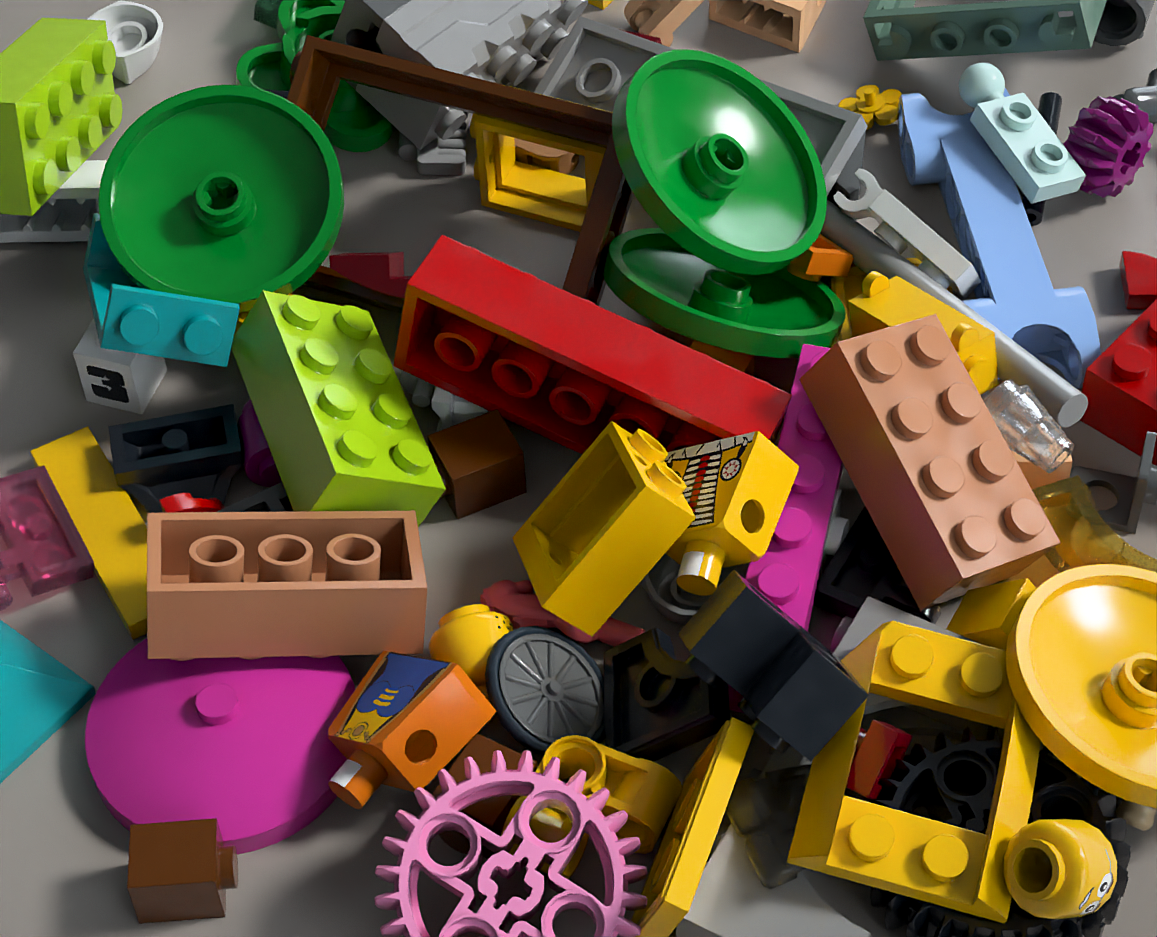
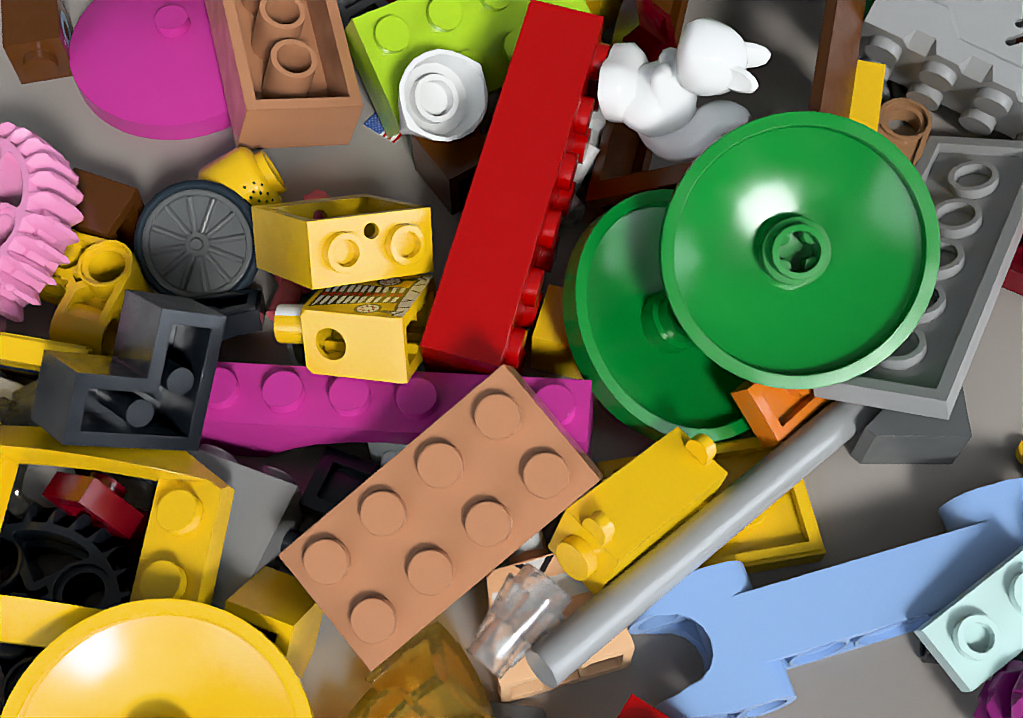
camera: 80 degrees right, 10 degrees up
(404, 725) = (152, 140): orange torso -> none
(442, 428) = (442, 96): none -> white hat
(528, 215) = (662, 94): none -> white animal
(904, 231) = (812, 496): white plate -> none

